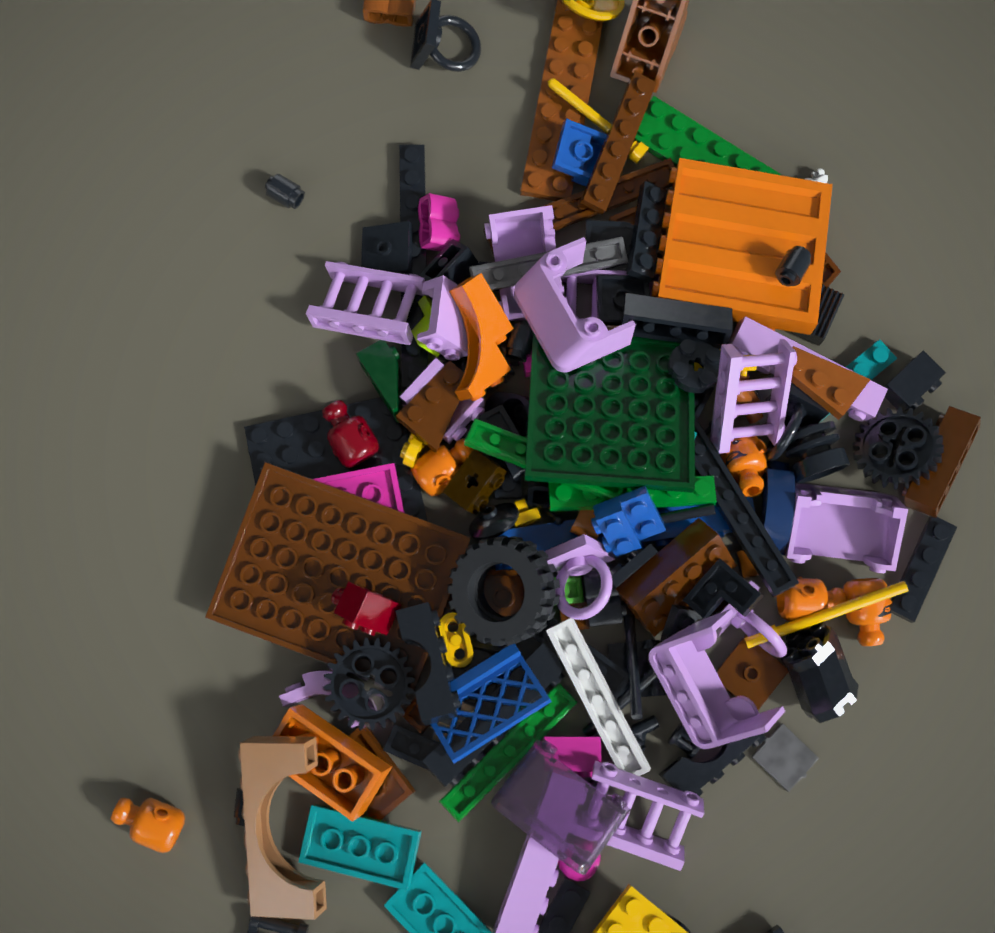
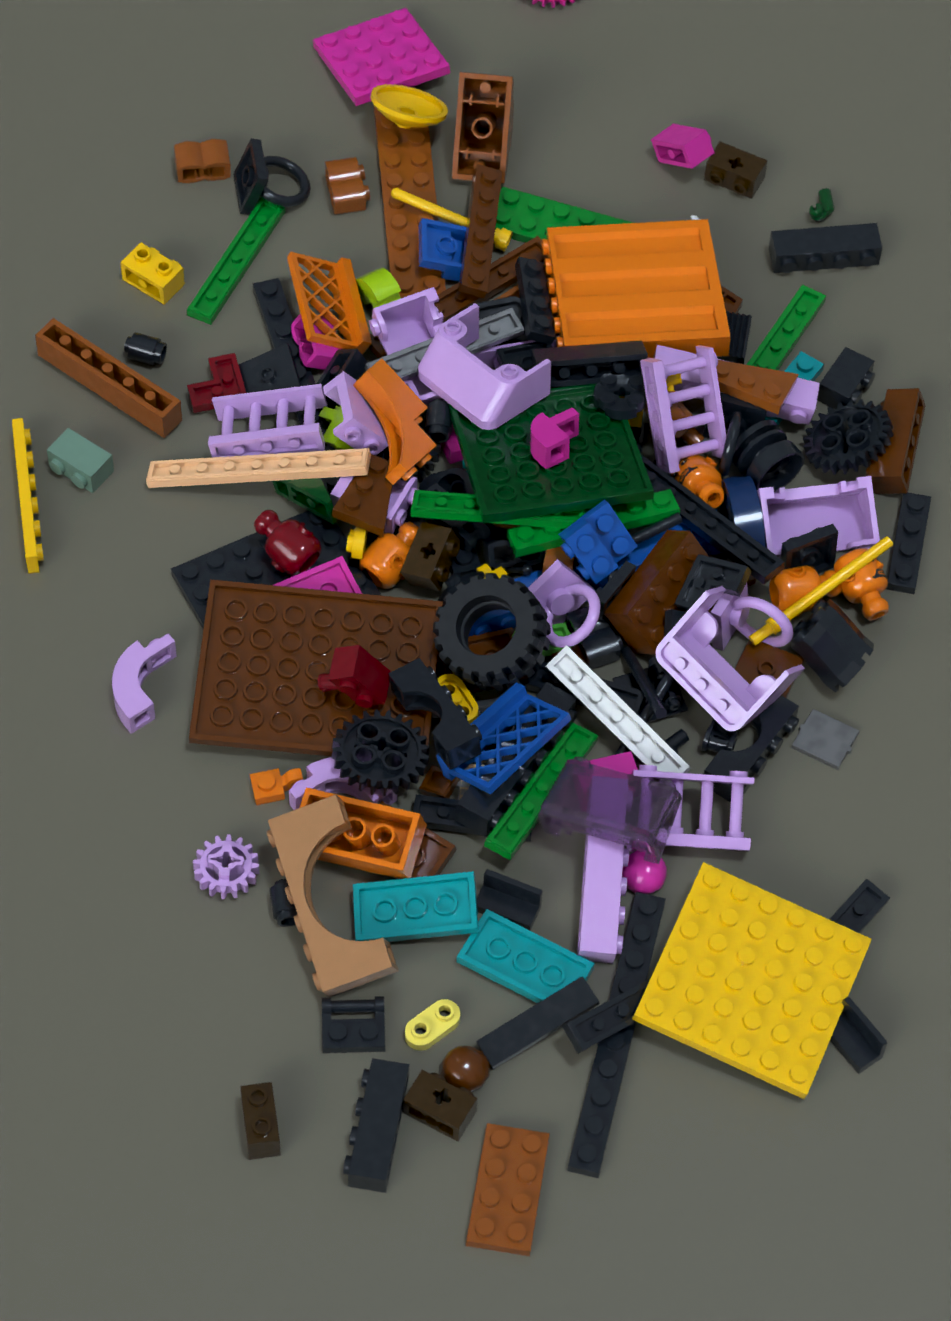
camera: 15 degrees left, 20 degrees down
(135, 328) = (28, 504): none -> yellow plate
(152, 824) = (192, 940): orange piece -> none
(172, 535) = (131, 669): none -> lavender arch
(195, 295) = (80, 460): none -> sand green brick
(210, 741) = (236, 876): none -> lavender gear
(241, 216) = (109, 377): none -> dark orange brick
(270, 675) = (270, 786): none -> orange plate
(312, 112) = (152, 273): none -> yellow brick
(345, 248) = (226, 381): none -> dark red plate
(348, 348) = (258, 468): none -> light nougat tile
(391, 117) = (235, 261): none -> green tile
(446, 858) = (509, 899): none -> black panel
(478, 185) = (345, 302): none -> orange fence
(510, 185) = (378, 287): none -> lime brick
(511, 61) = (346, 185): none -> dark orange brick
(611, 400) = (552, 437): none -> dark pink brick
(793, 266) = (690, 291): black brick -> none
(831, 94) = (682, 146): none -> dark pink brick
(835, 566) = (812, 549): none -> black plate
(869, 318) = (788, 329): none -> green plate
(873, 129) = (735, 170): none -> dark brown brick
(934, 234) = (825, 248): none -> black brick
(946, 188) = (825, 207): none -> dark green arm

